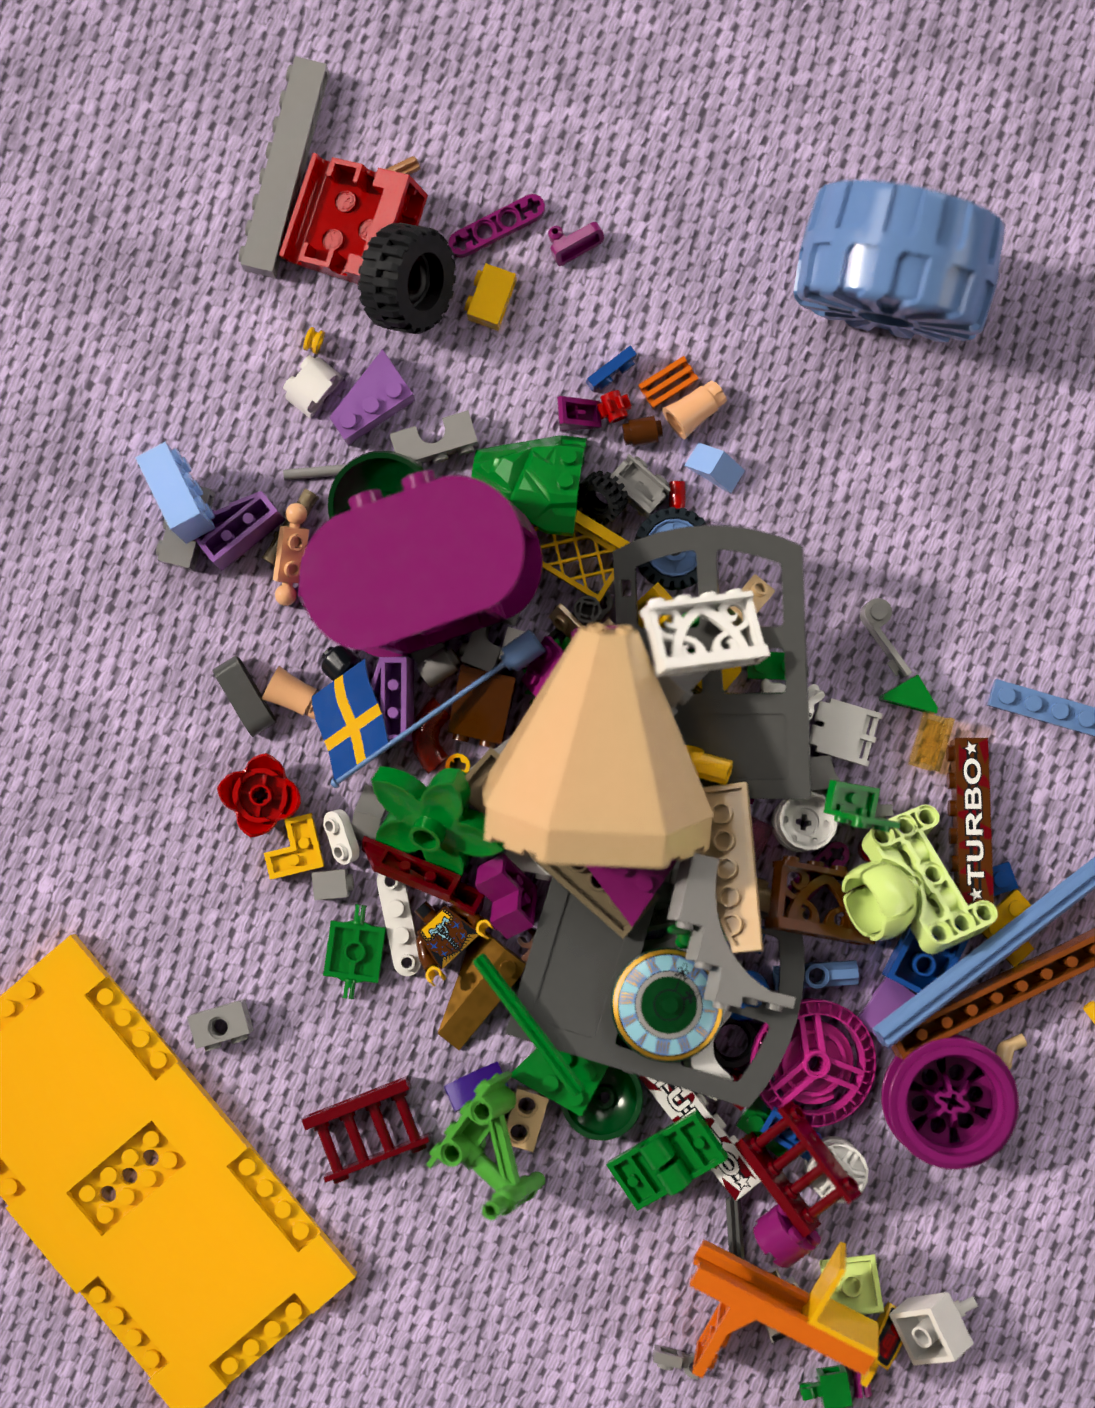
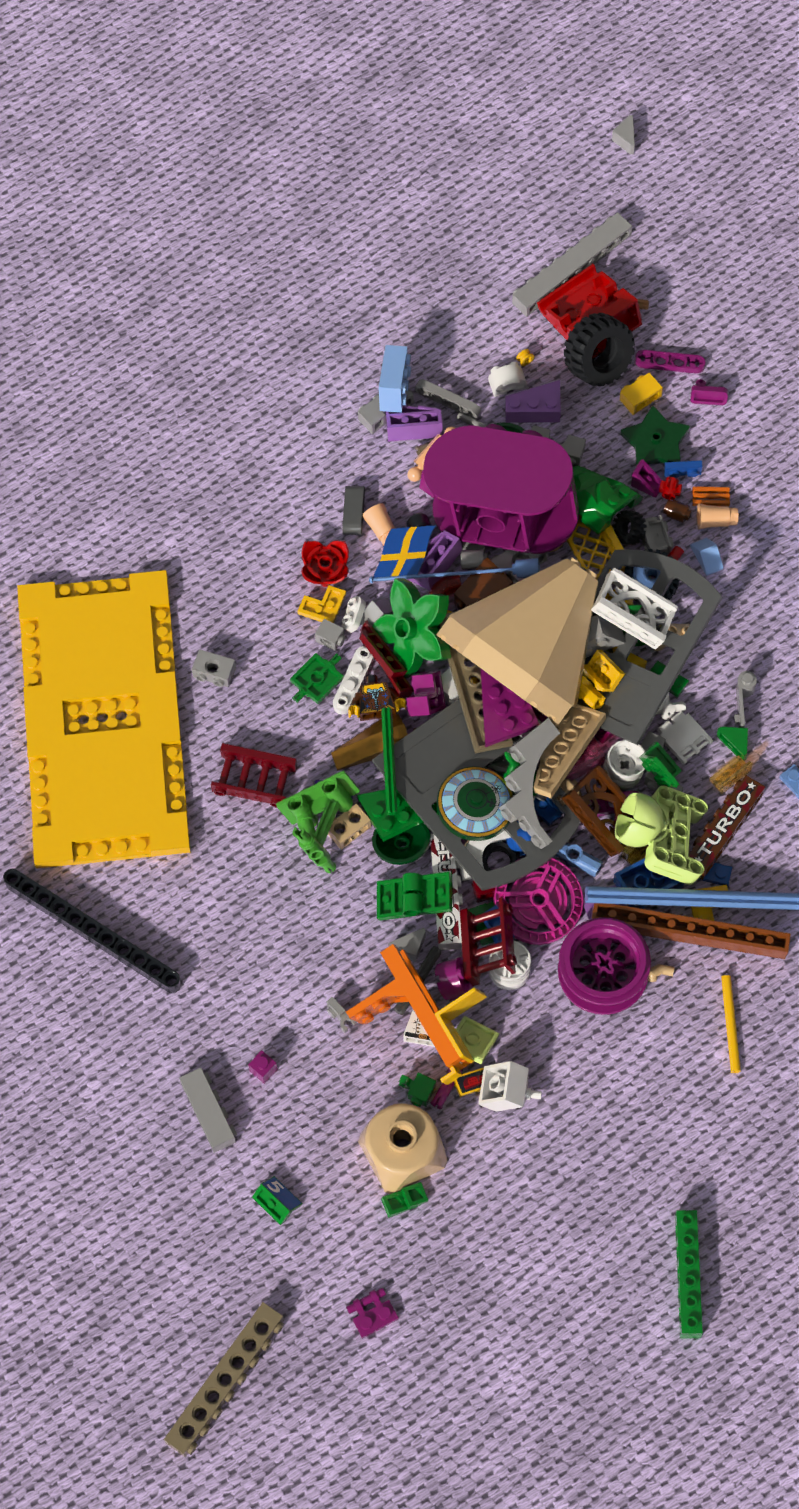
camera: 30 degrees right, 20 degrees down
(256, 463) = (447, 398): none -> light grey beam
(552, 370) = (655, 438): none -> dark green plate
(699, 1220) = (411, 943): none -> light grey slope
(708, 730) = (603, 672): none -> yellow bracket

